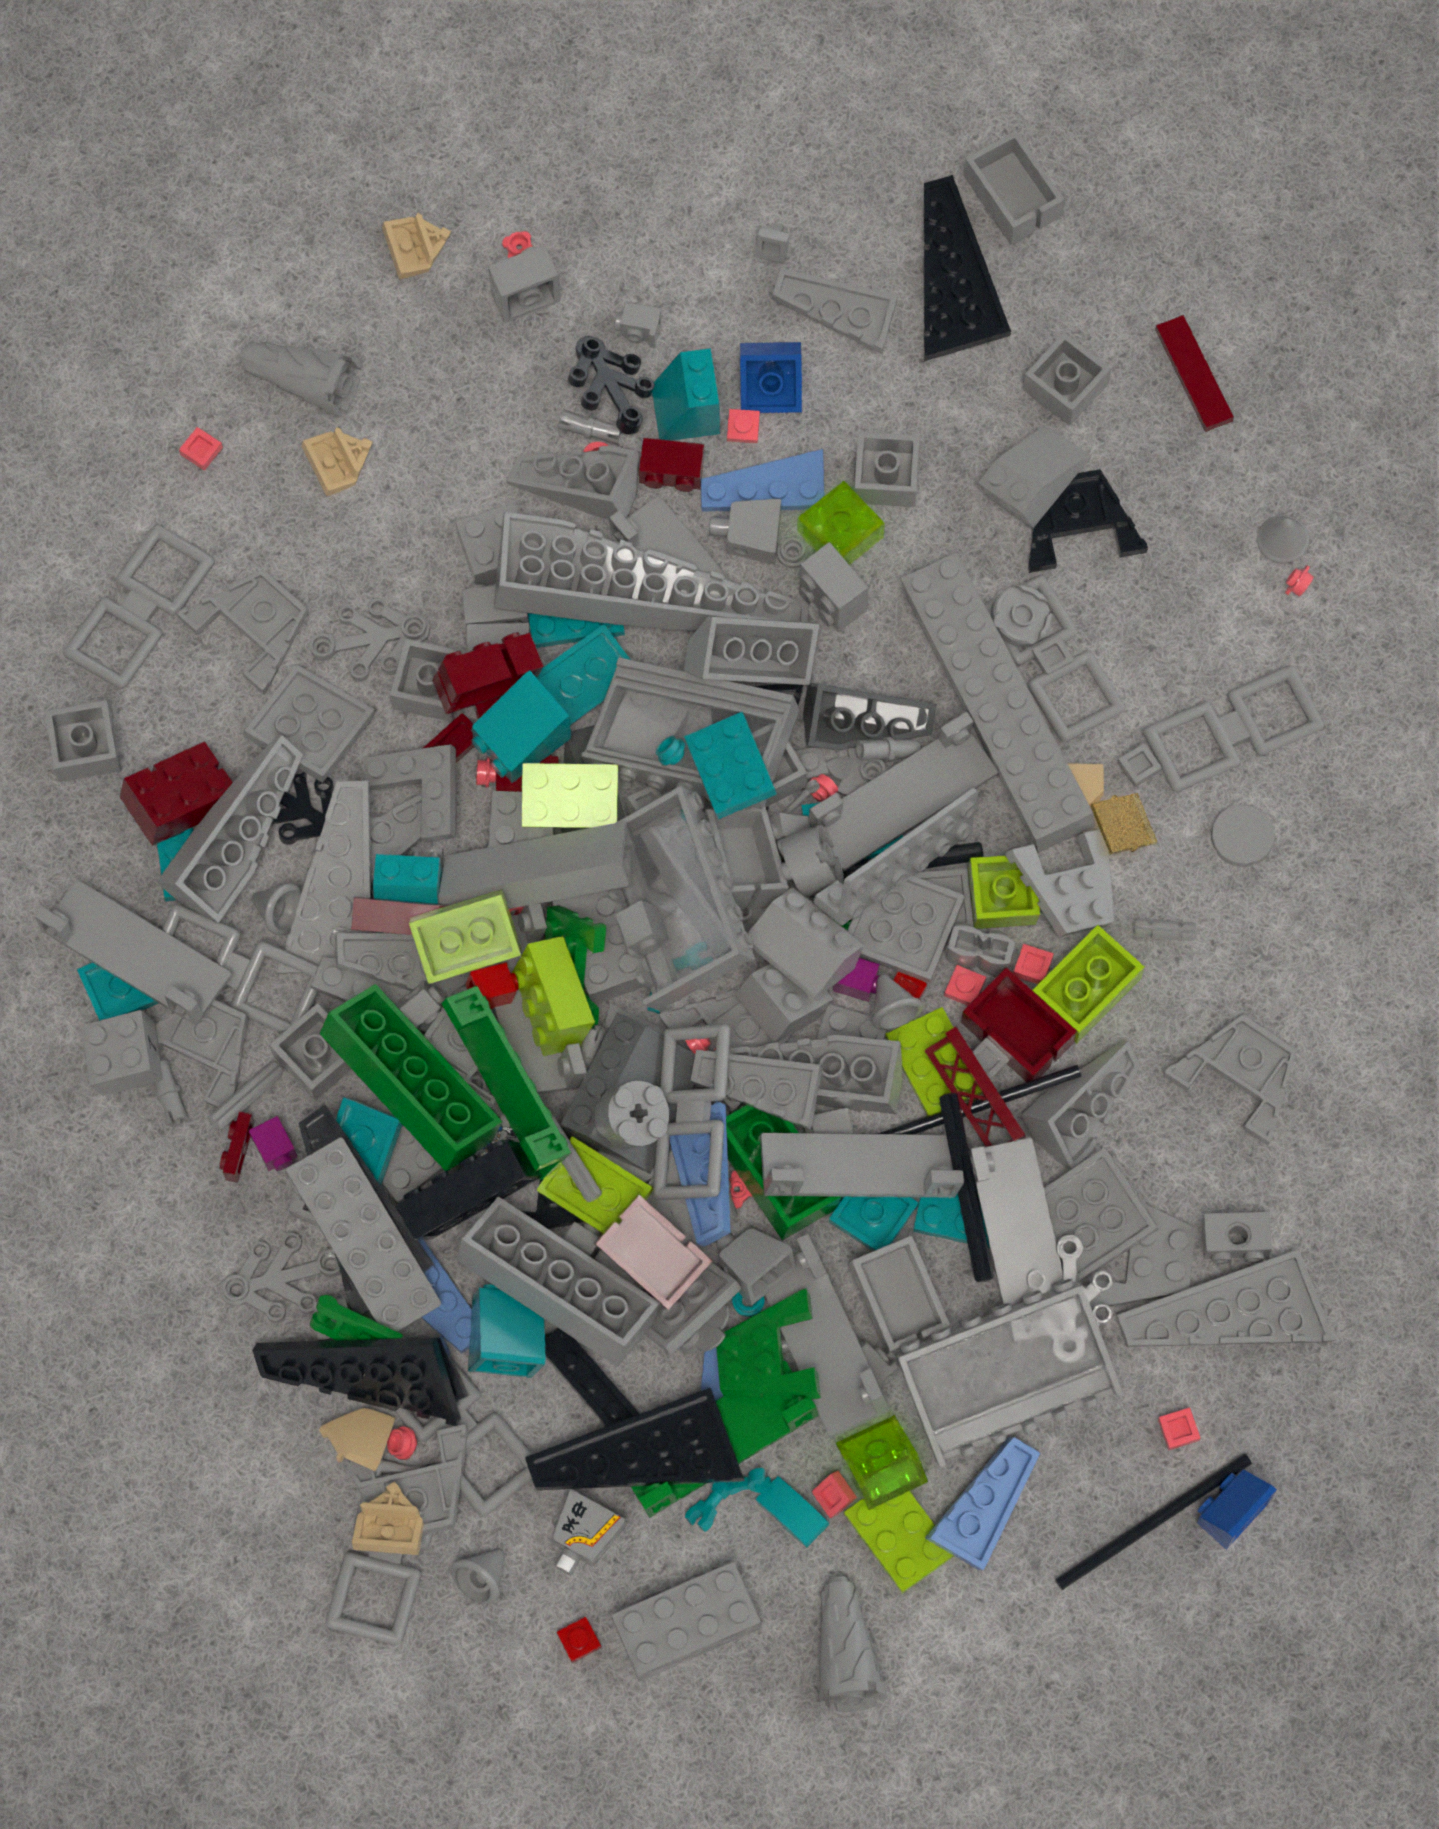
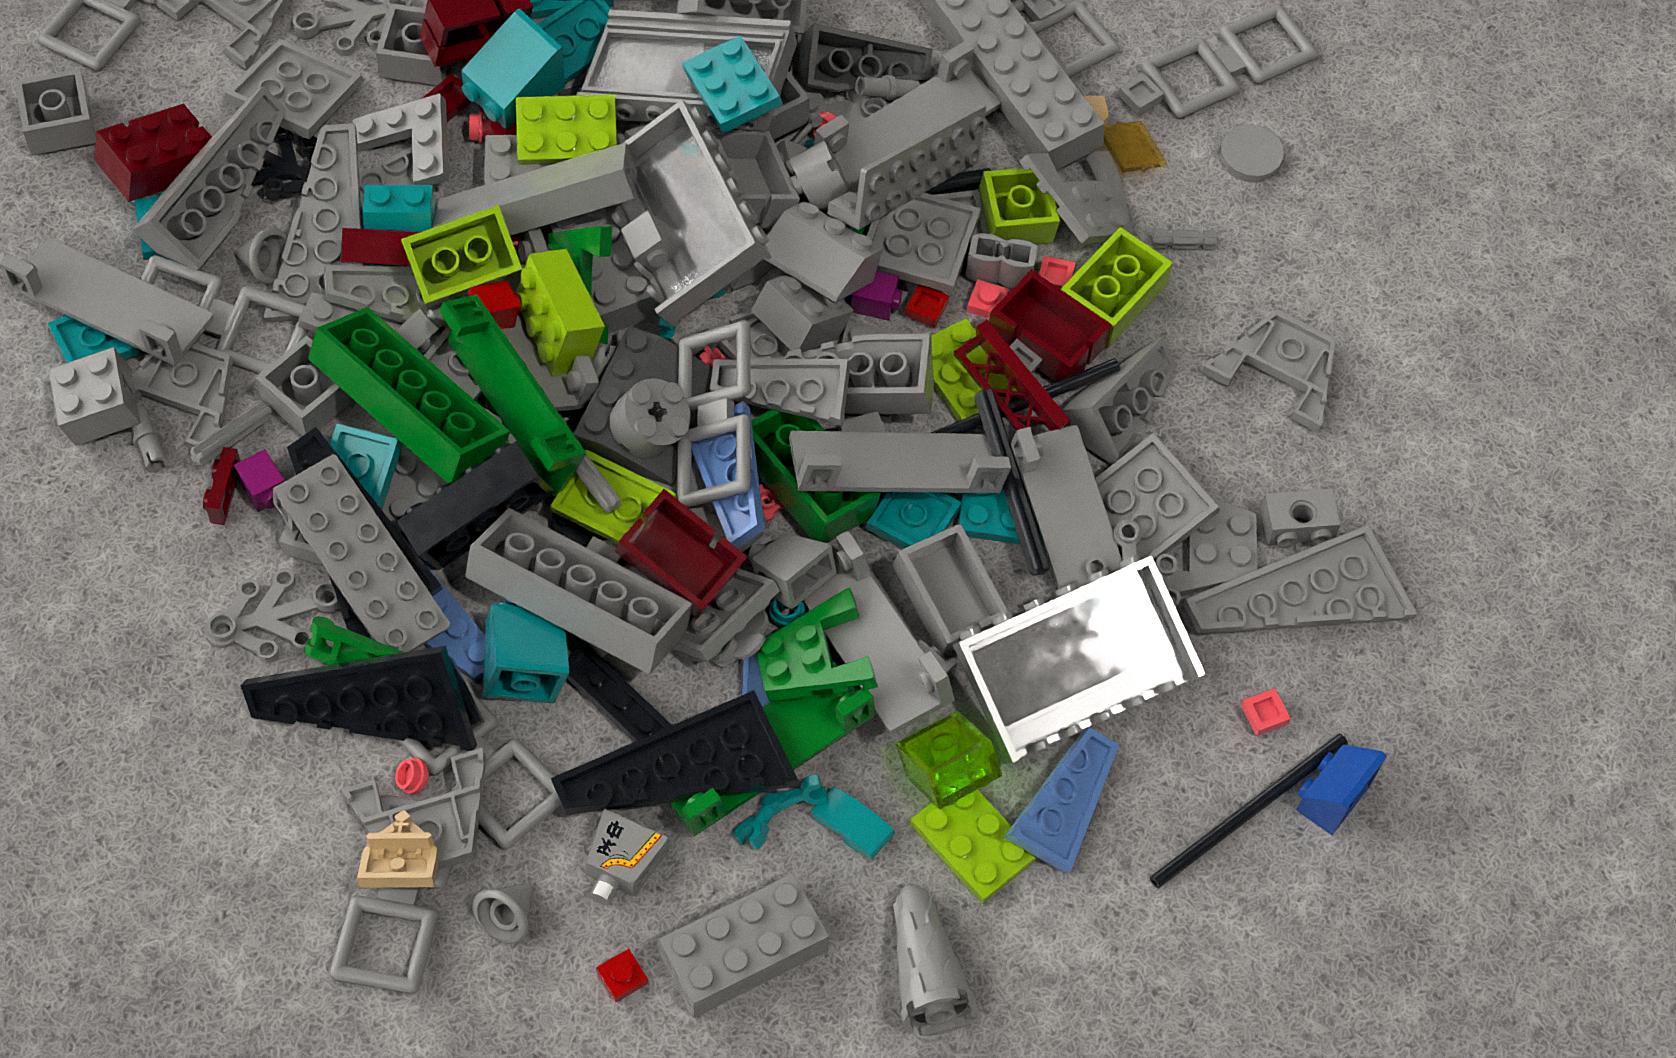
camera: 10 degrees left, 10 degrees down
(360, 1436) = (363, 768): tan slope -> none
(670, 751) = (669, 77): teal plate -> none
(834, 1494) = (898, 800): coral plate -> none
(893, 1005) = (919, 312): light grey hat -> none

